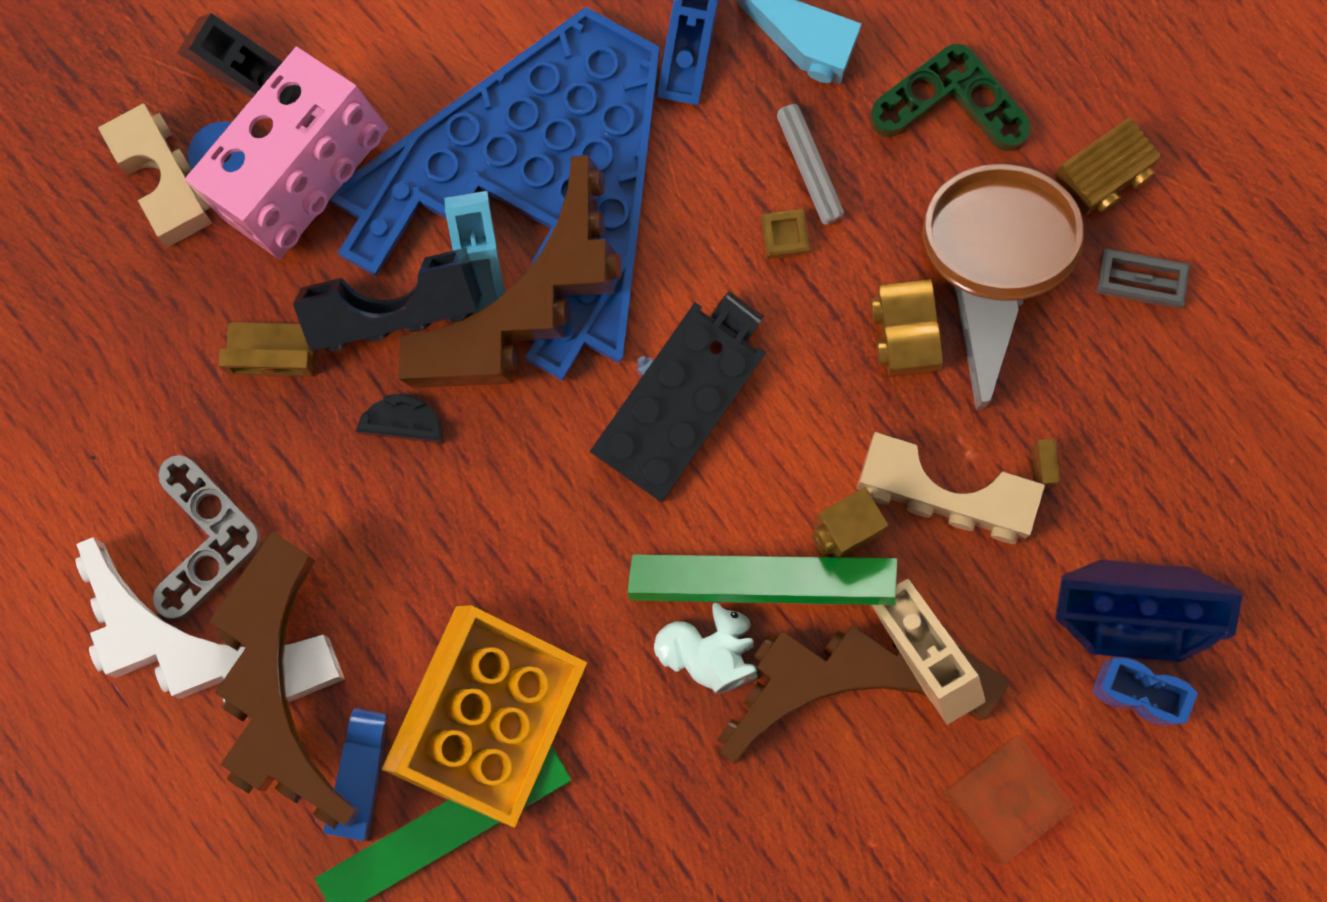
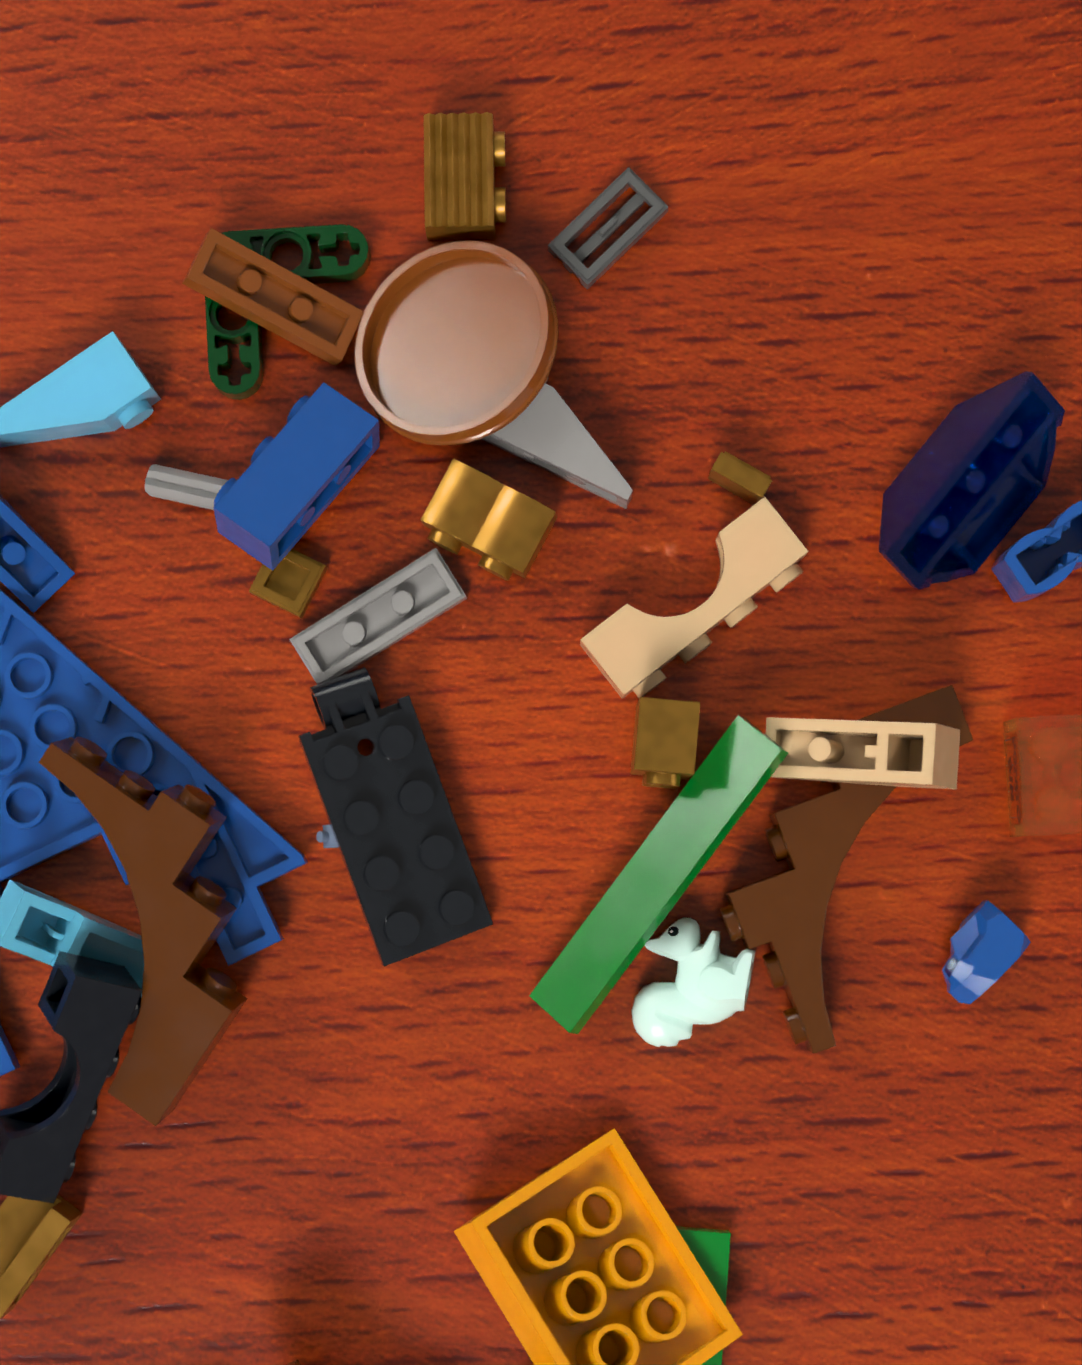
camera: 50 degrees left, 5 degrees up
(401, 418) = (200, 1146): black tile -> none
(801, 304) = (378, 618): none -> light grey tile
(852, 192) = (296, 475): none -> blue brick
(856, 817) = (982, 952): none -> blue rock
(951, 104) = (273, 297): none -> dark orange plate

